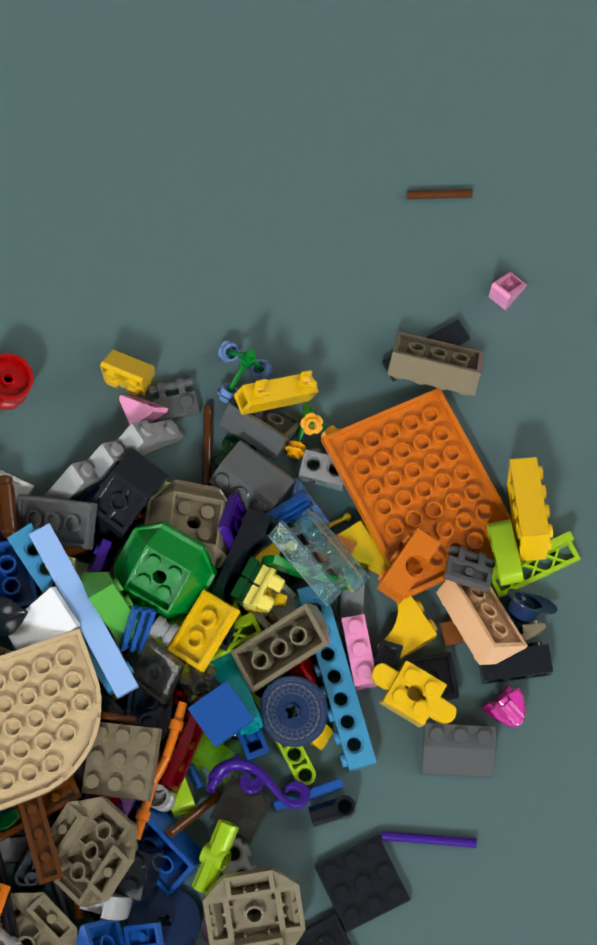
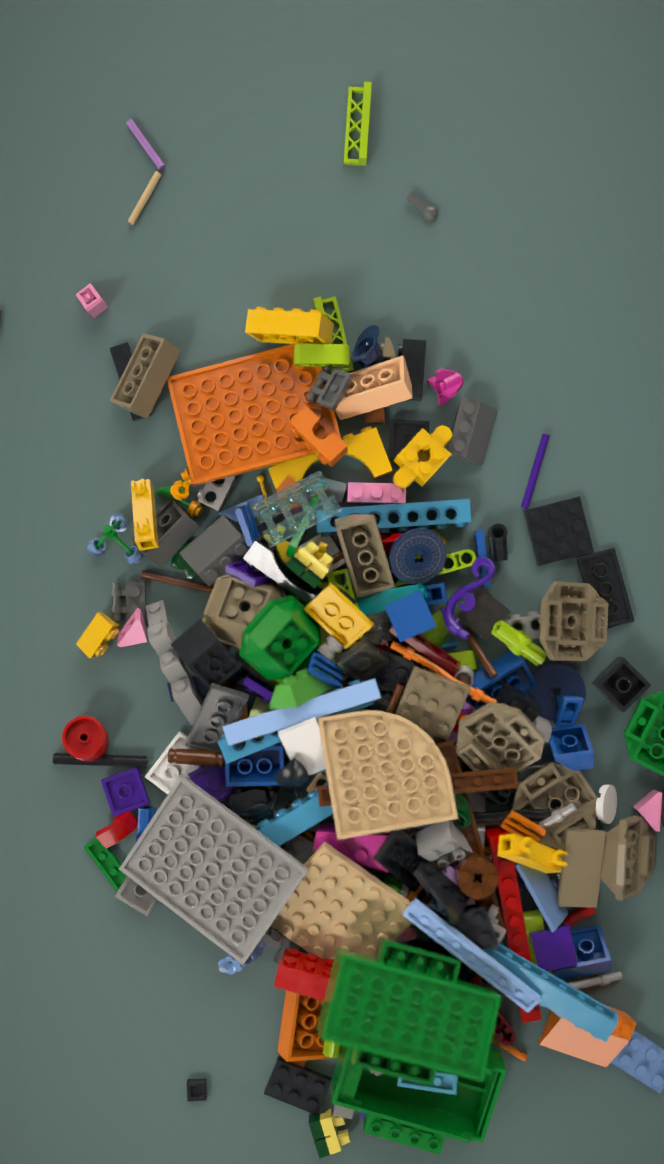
camera: 80 degrees left, 15 degrees up
(388, 653) = (385, 469): black tile -> none

